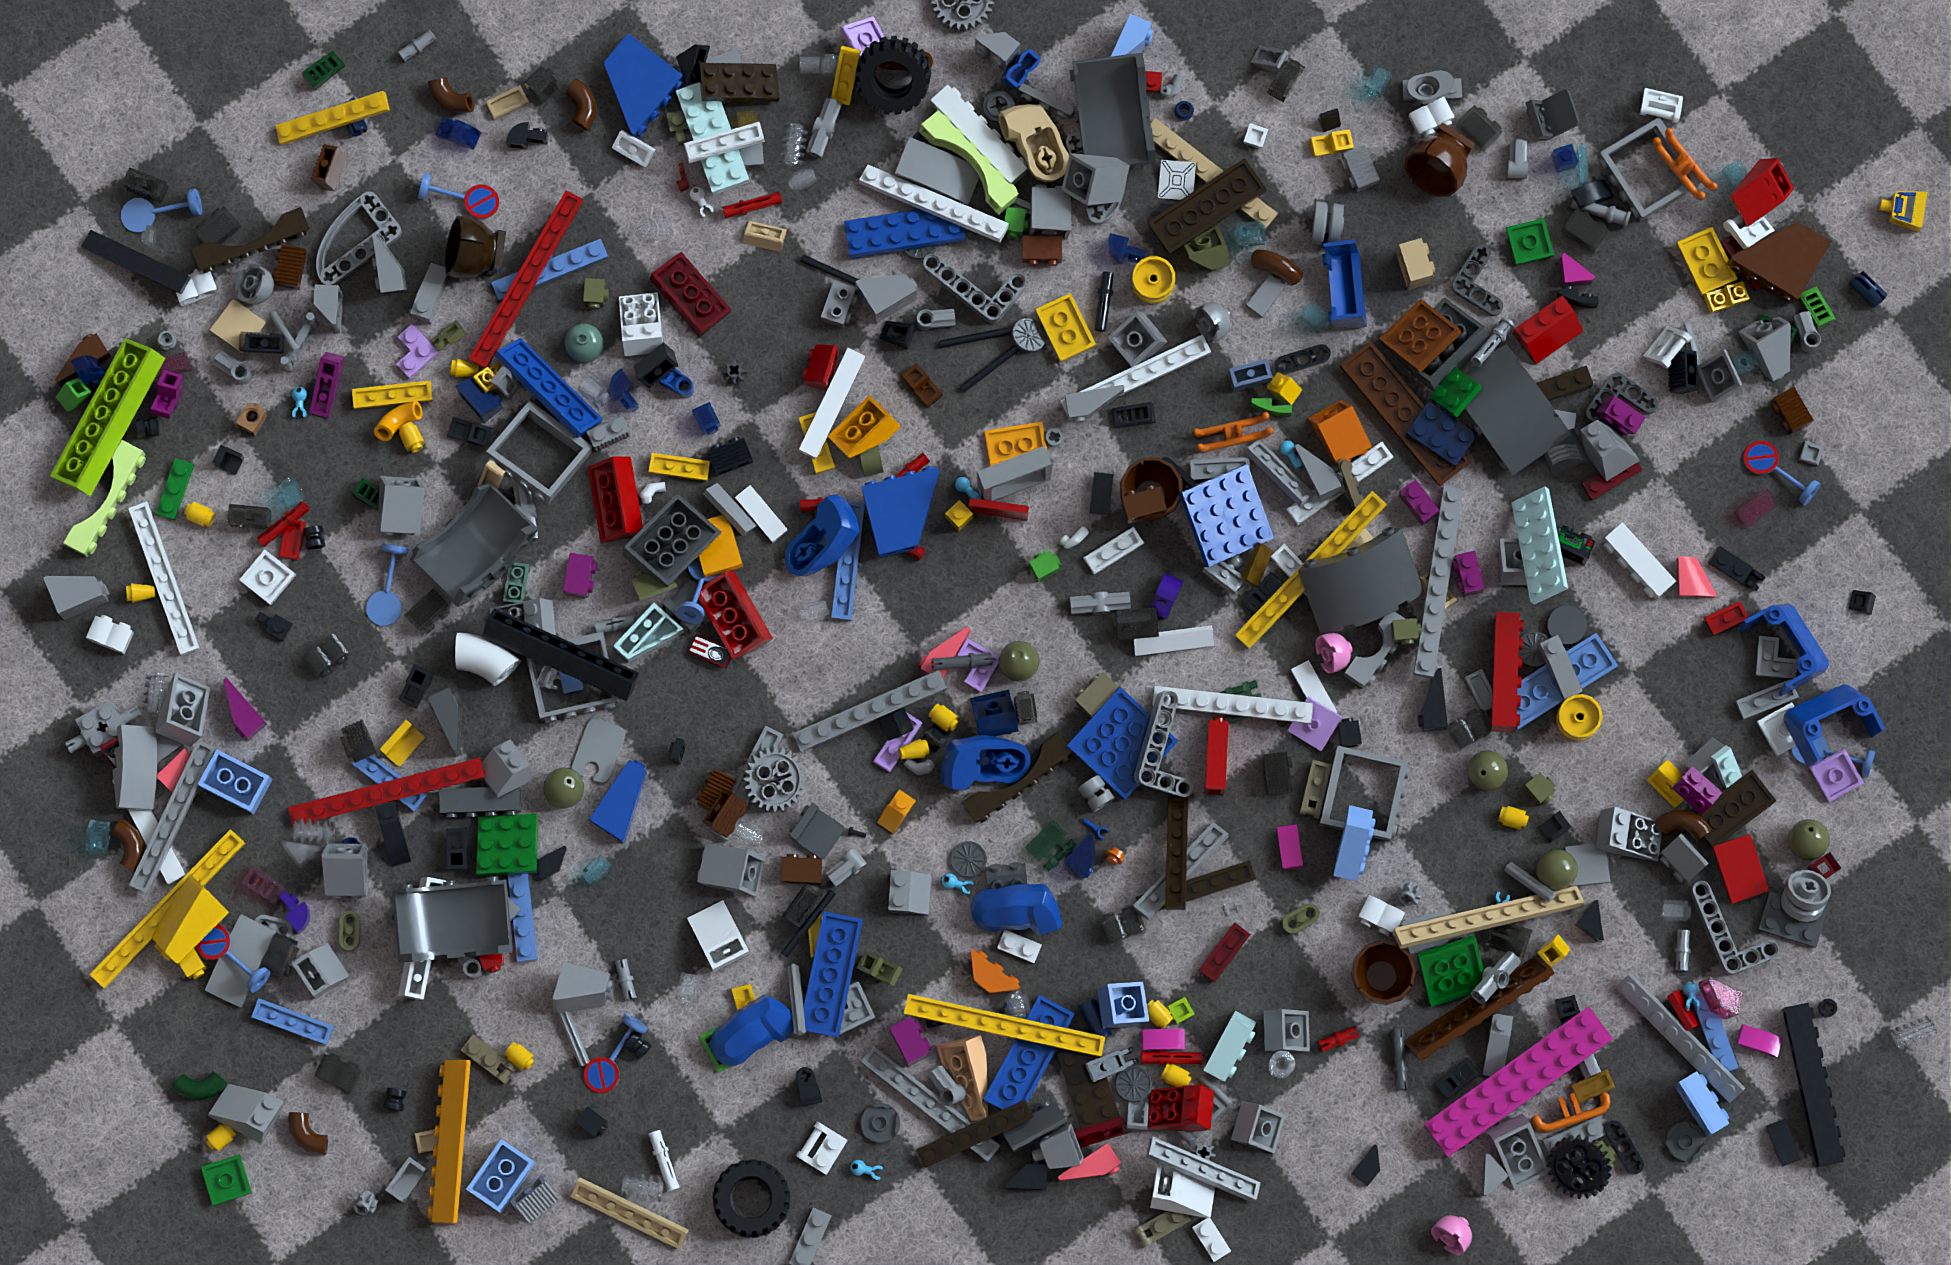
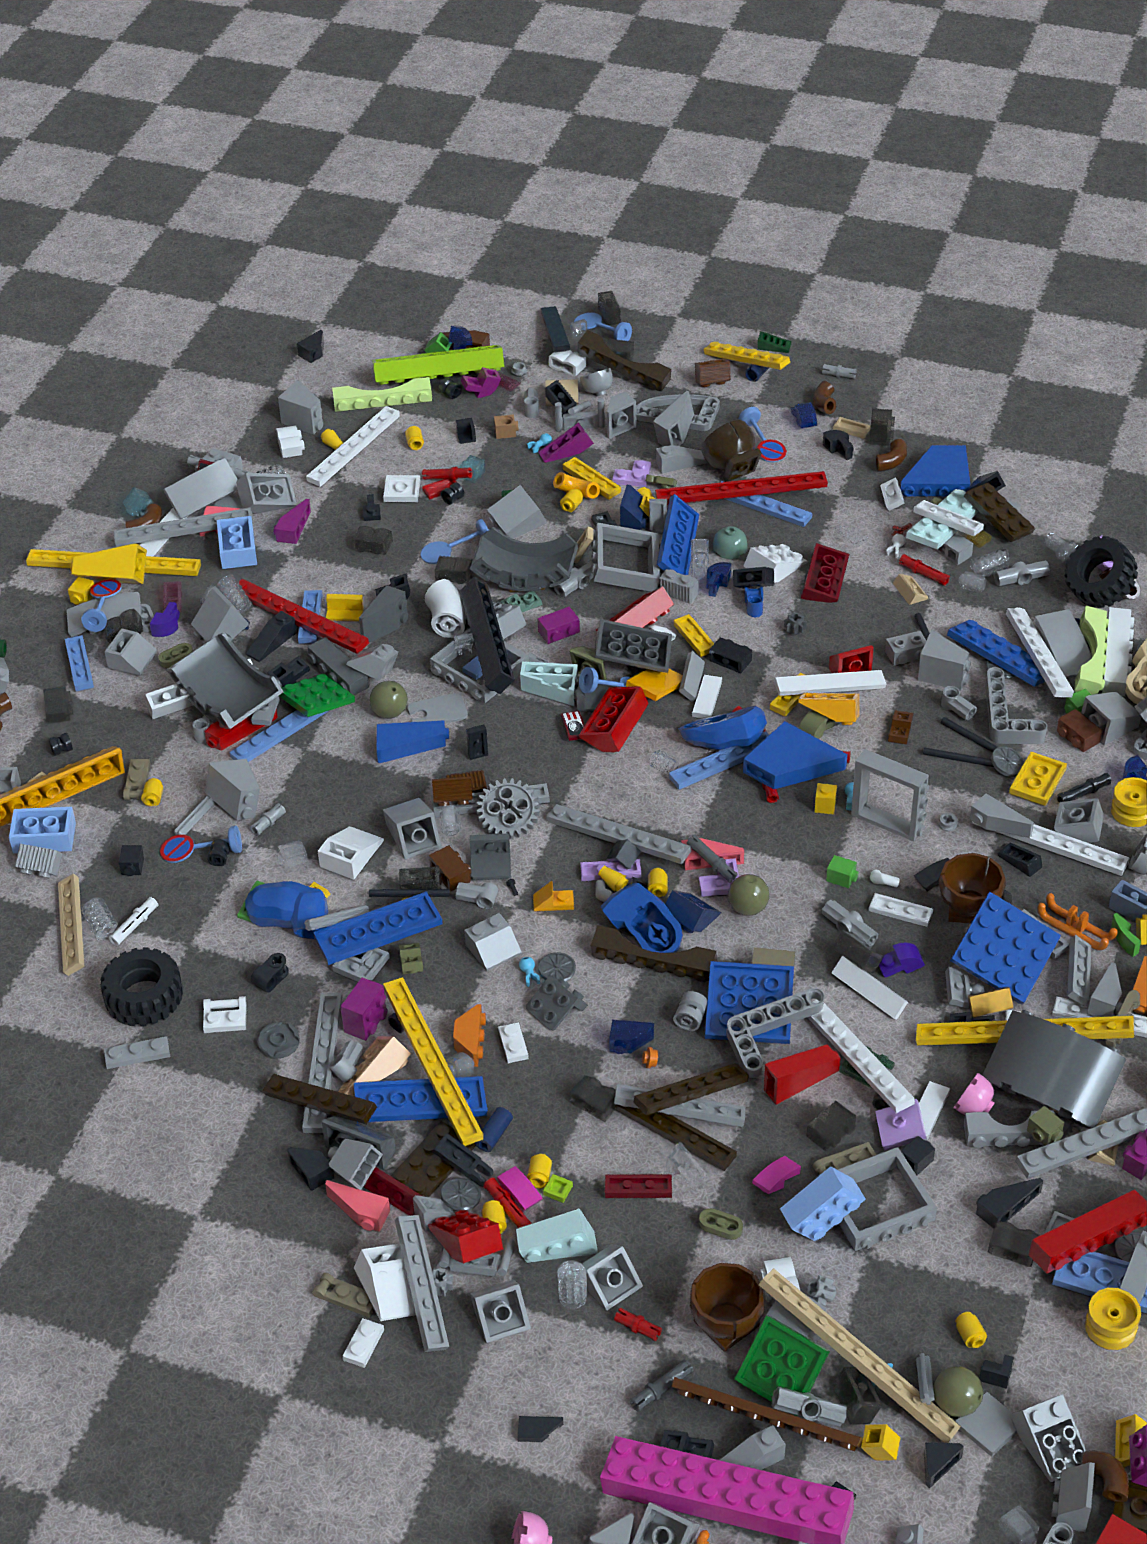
camera: 55 degrees right, 35 degrees down
(175, 489) = (423, 421): green plate -> none
(249, 516) = (434, 454): clear smoke brick -> none
(290, 266) = (633, 387): reddish brown brick -> none
(357, 741) = (322, 581): clear smoke brick -> none
(550, 863) = (323, 731): black tile -> none
(595, 293) = (771, 528): olive brick -> none
(596, 870) = (341, 755): clear light blue brick -> none
(706, 419) = (745, 628): clear blue brick -> none
(845, 75) = (1057, 565): yellow plate -> none
(861, 1168) = (226, 1047): medium azure arm -> none
(898, 333) = (924, 693): black slope -> none
(999, 509) = (855, 813): red tile -> none
(1013, 441) = (901, 801): light orange tile -> none
(1017, 909) = (544, 1012): blue piece -> none
(1025, 708) = (714, 921): clear smoke brick -> none
(1046, 840) = (617, 1005): clear green plate -> none
(1097, 829) = (662, 1034): blue hand -> none
(1122, 1005) = (523, 1133): medium blue brick -> none
(1143, 504) = (952, 873): reddish brown brick -> none
(1287, 448) = (1102, 966): medium azure arm -> none
(1487, 770) = (991, 1276): olive piece -> none
(1540, 789) = (1018, 1333): olive brick -> none

